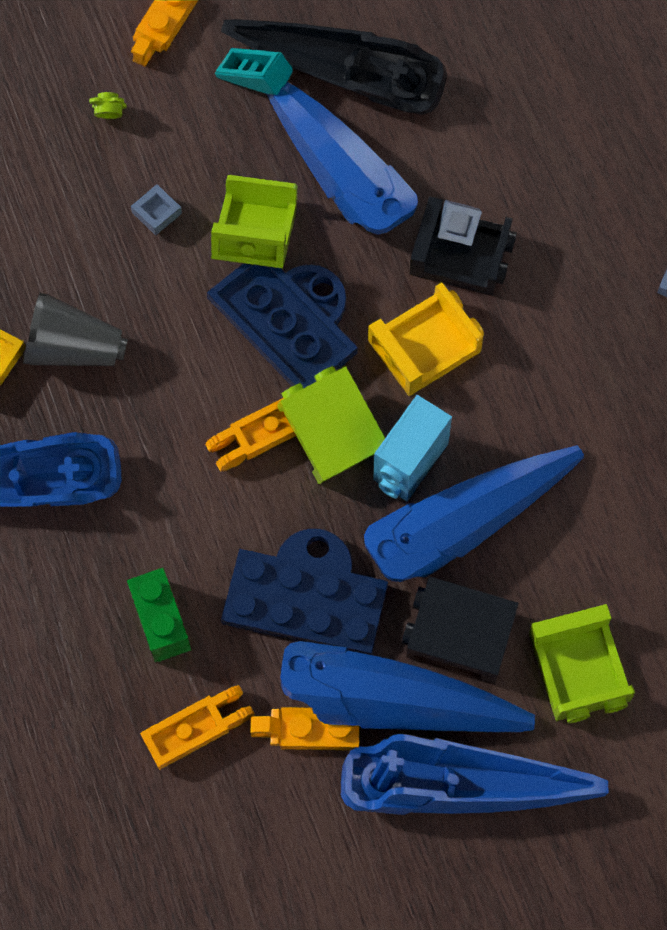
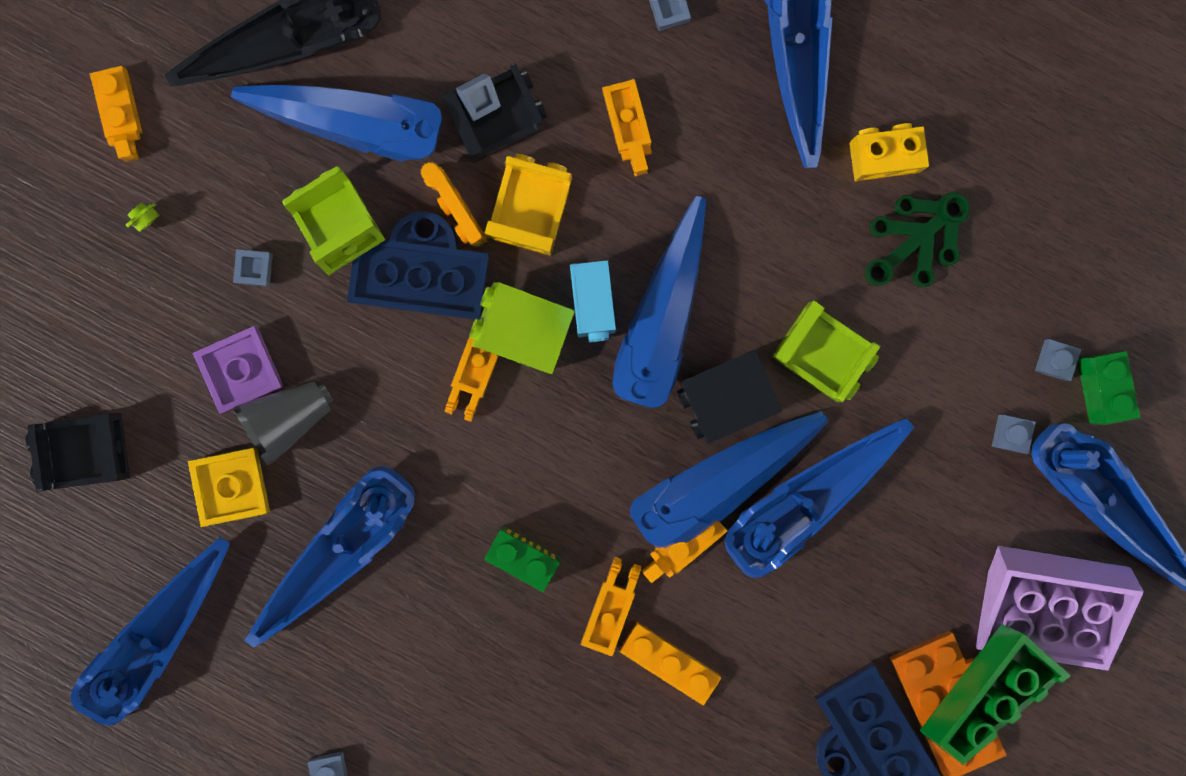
camera: 40 degrees left, 20 degrees up
(71, 272) = (238, 369): none -> medium lavender plate
(203, 824) = (670, 663): none -> light orange plate
(258, 71) = (241, 90): teal slope -> none
(306, 595) = (605, 458): dark blue plate -> none
(364, 288) = (452, 203): none -> light orange hinge
(567, 343) = (628, 124): none -> light orange hinge

